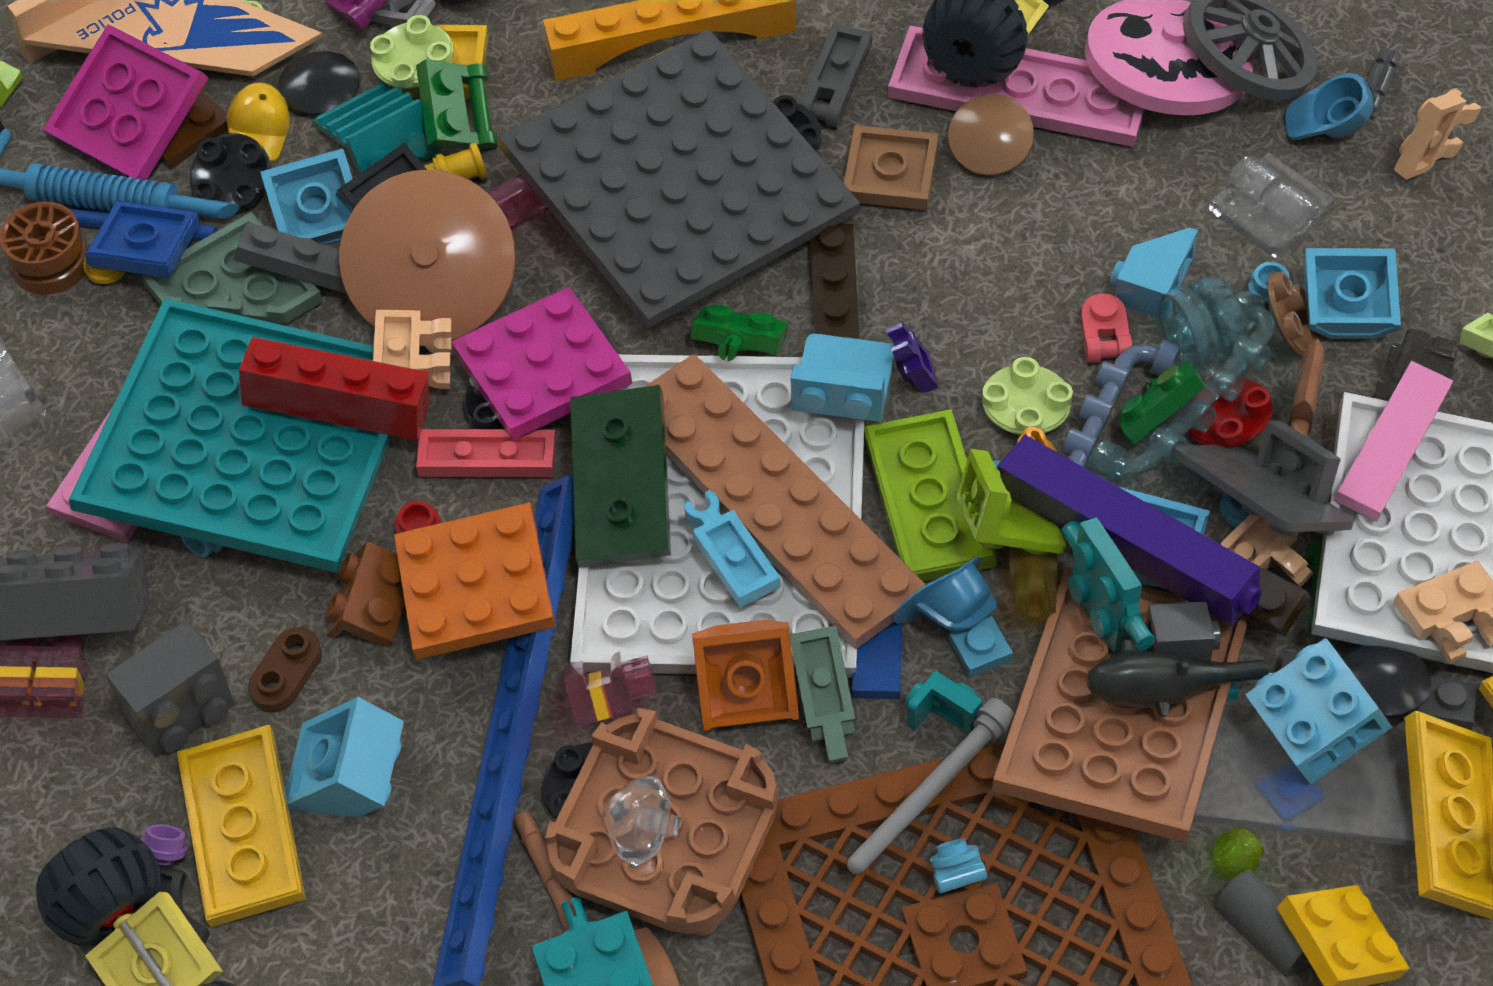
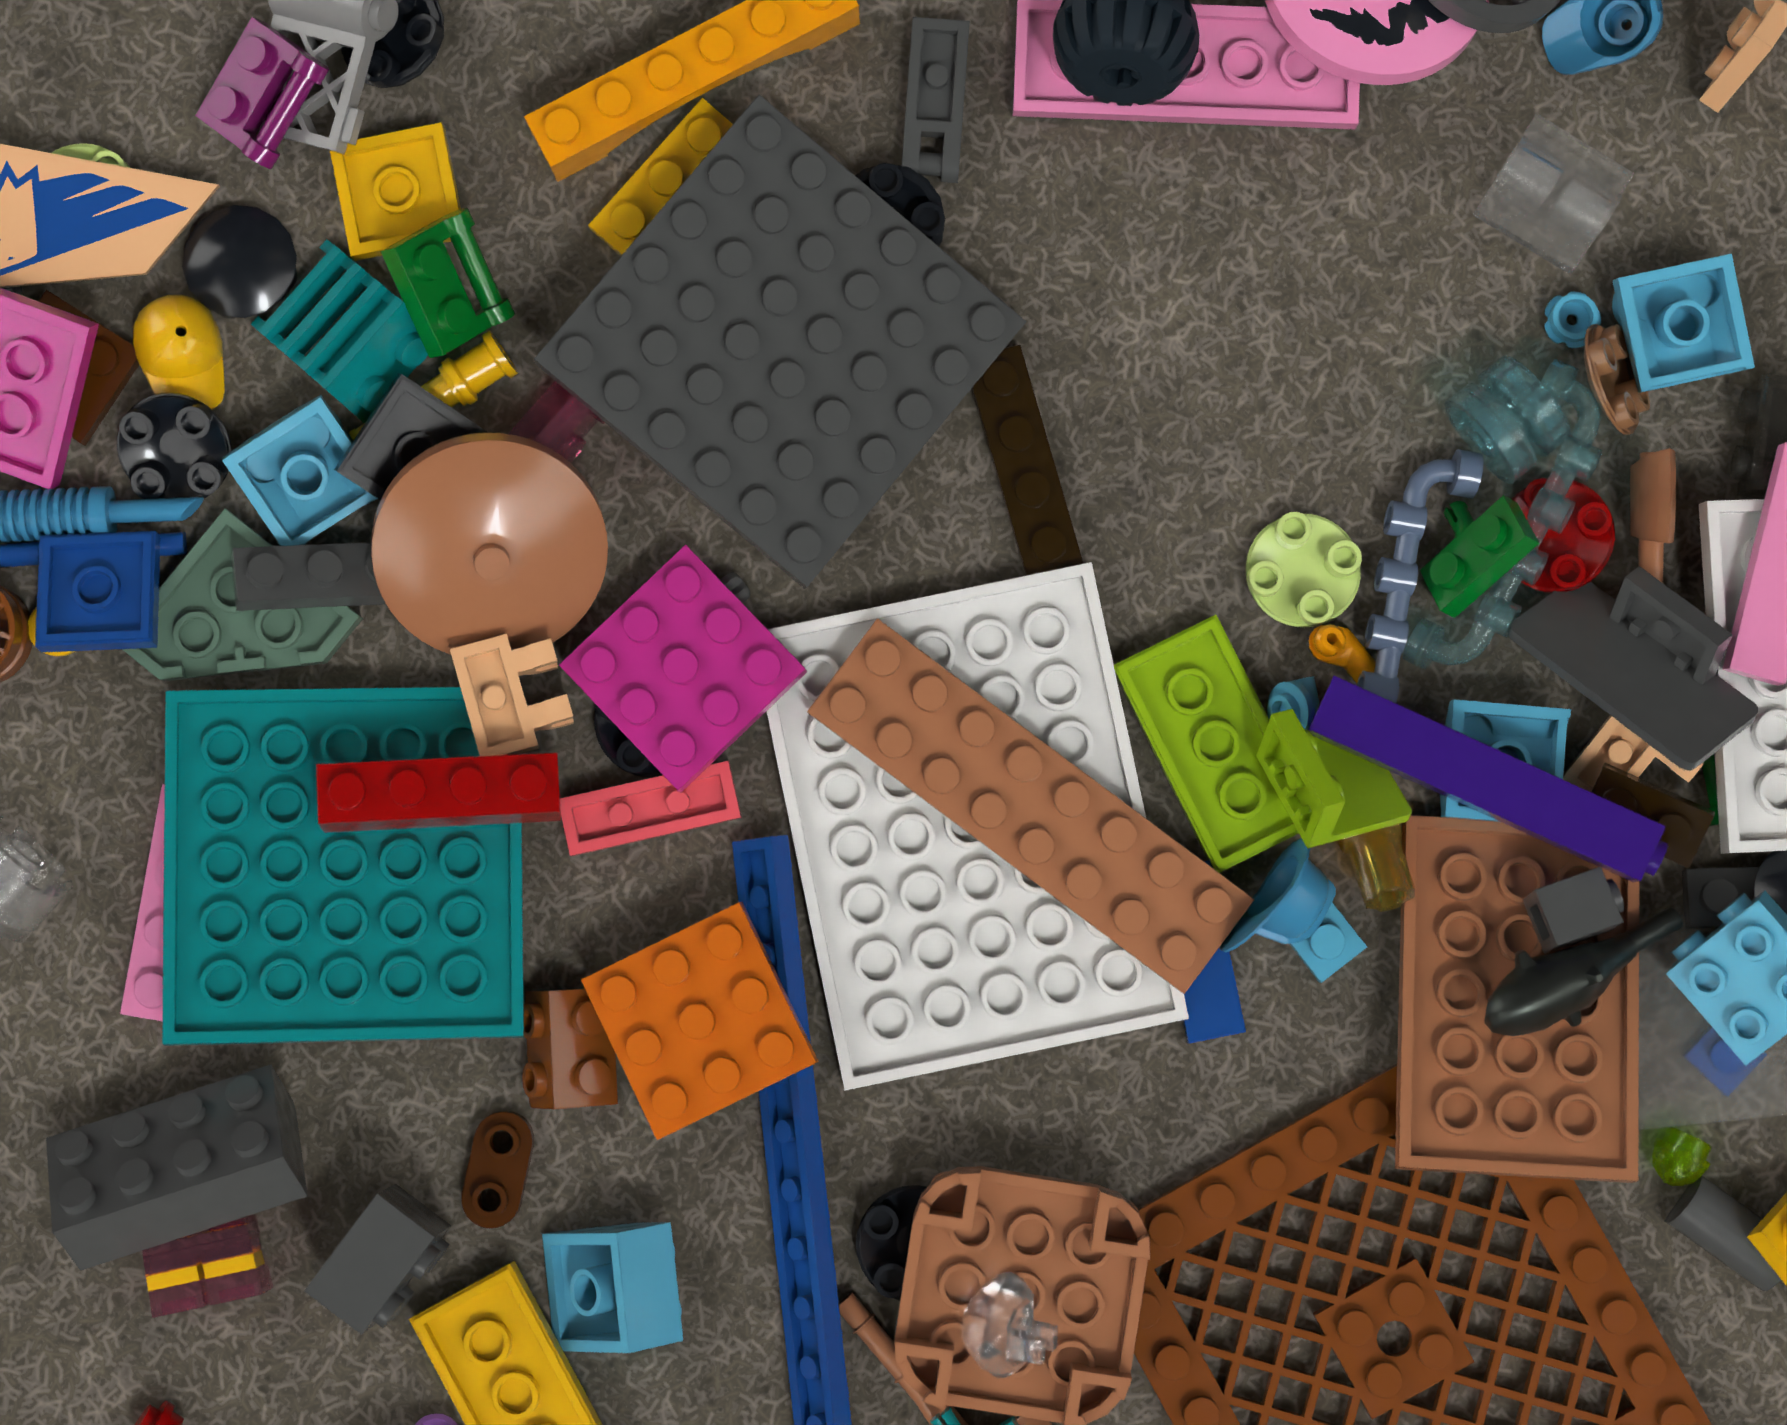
camera: 15 degrees left, 30 degrees up
(404, 47) = (358, 206): yellowish green dish -> none
(415, 516) = (594, 928): red plate -> none
(607, 691) = (898, 1139): clear pink hips -> none
(620, 476) = (837, 830): dark green plate -> none
(731, 552) = (1004, 905): medium azure plate -> none
(738, 331) = (918, 553): green plate -> none
(745, 673) = (1062, 1066): orange slope -> none
(824, 689) = (1160, 1062): sand green hinge -> none
(842, 377) = (1076, 611): medium azure bracket -> none
(891, 166) = (1047, 240): medium nougat plate -> none
(912, 358) = (1153, 553): dark purple plate -> none
(944, 697) = (1317, 1034): teal bracket -> none
(957, 865) = (1369, 1257): medium azure plate -> none
(991, 134) = (1168, 162): medium nougat dish -> none
(992, 723) = (1369, 1066): light grey piece -> none
(1101, 318) = (1370, 418): coral plate -> none
(1106, 586) = (1465, 859): teal plate -> none
(1153, 270) = (1426, 344): medium azure slope -> none

